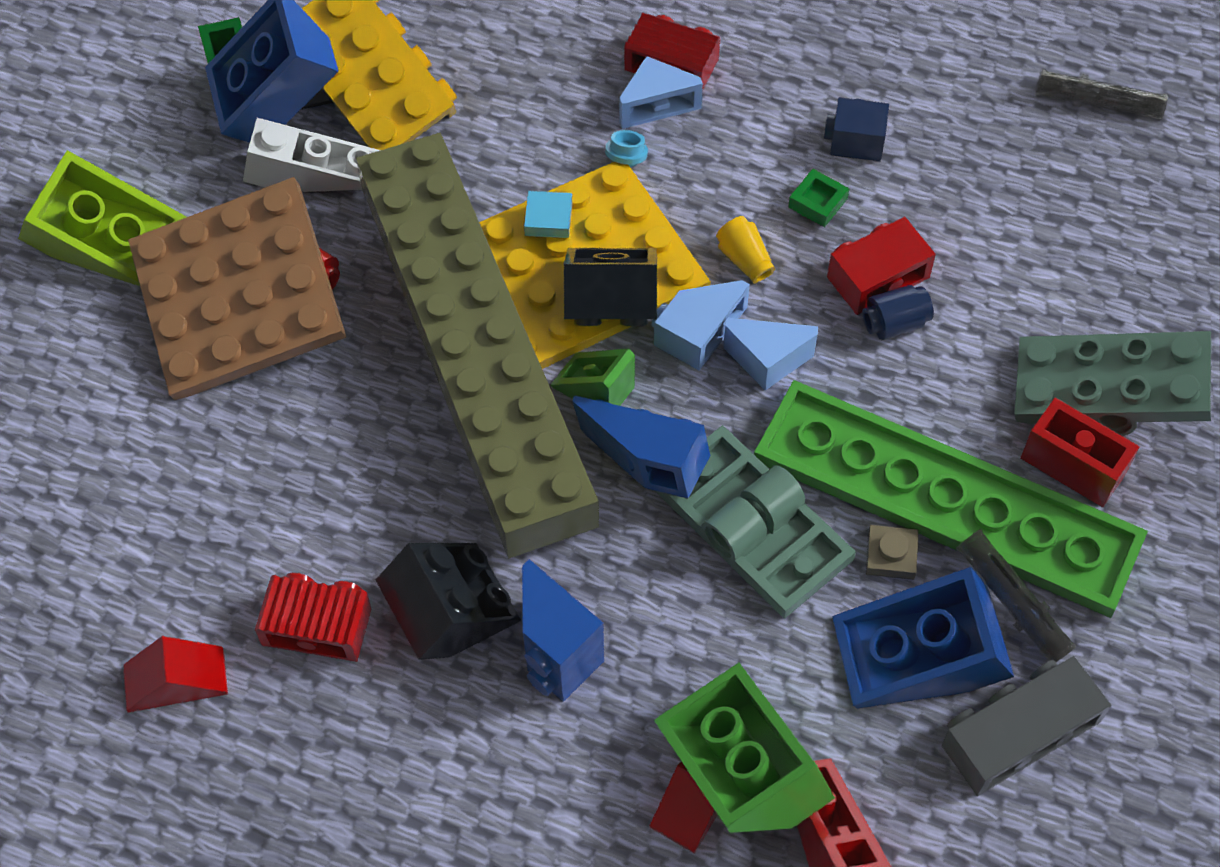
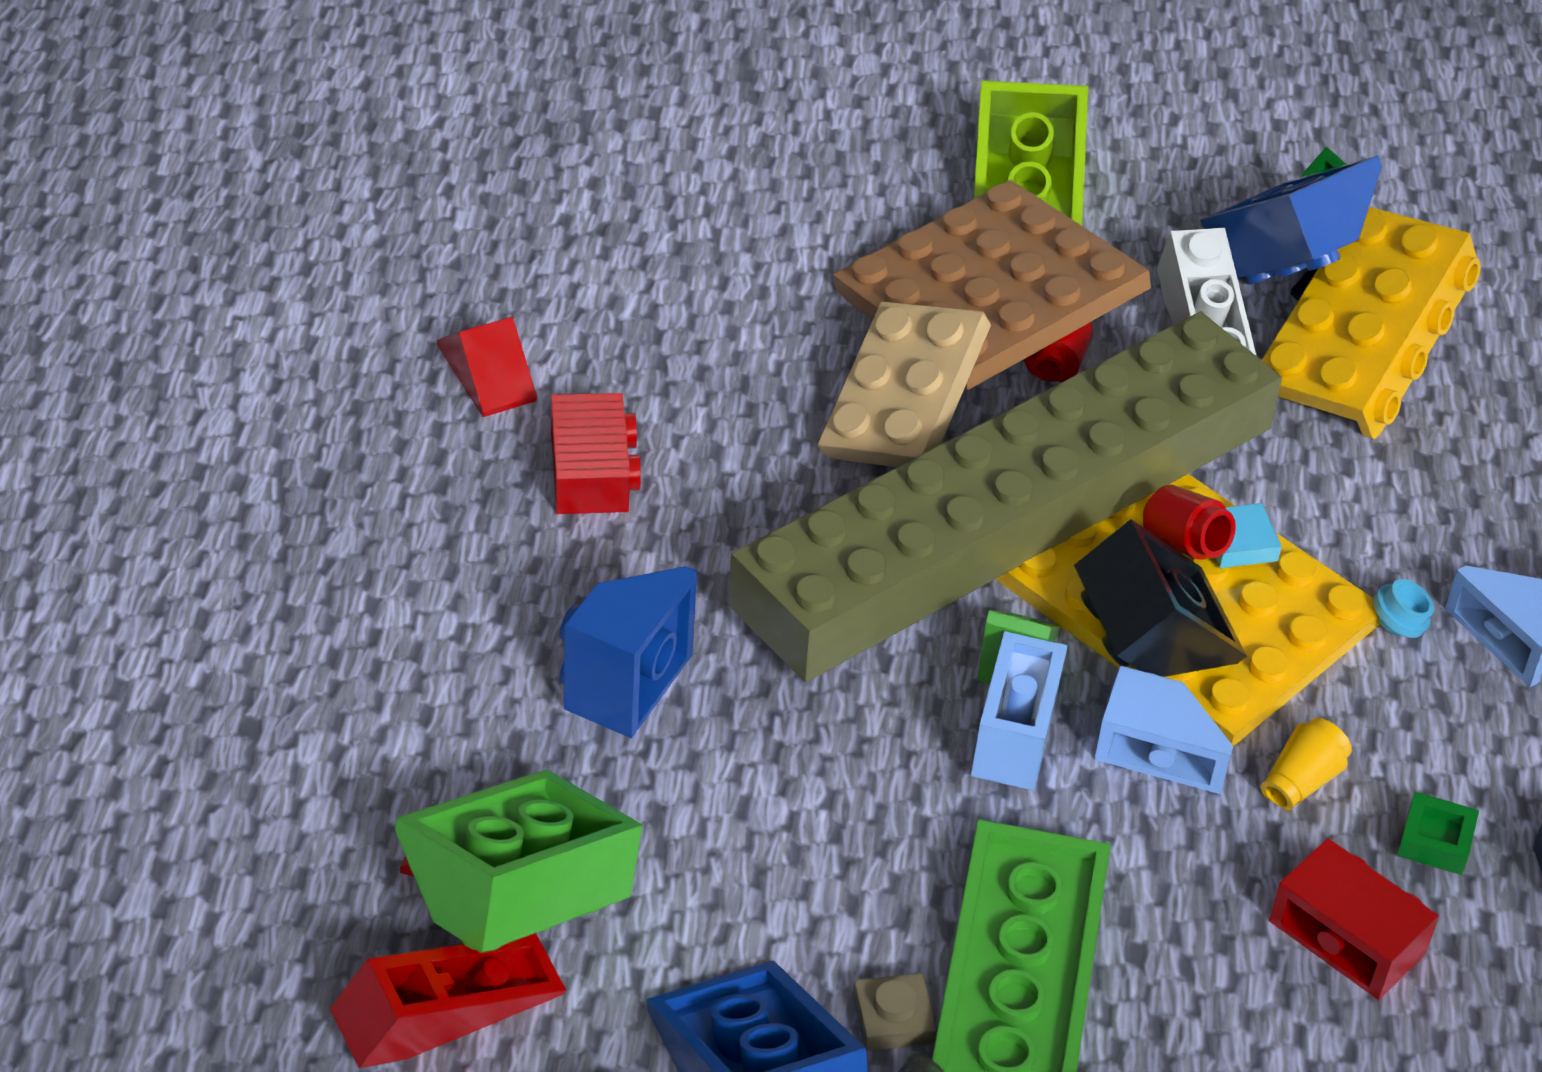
camera: 70 degrees right, 15 degrees down
(333, 375) = (904, 384): none -> tan plate
(445, 597) = (653, 534): black slope -> none
(542, 238) = (1189, 522): none -> red brick
(650, 447) = (931, 695): blue slope -> none
(673, 389) = (1018, 711): none -> light blue slope
(761, 525) = (876, 844): sand green plate -> none
(769, 348) = (1149, 815): light blue slope -> none
(898, 311) = (1284, 952): dark blue brick -> none

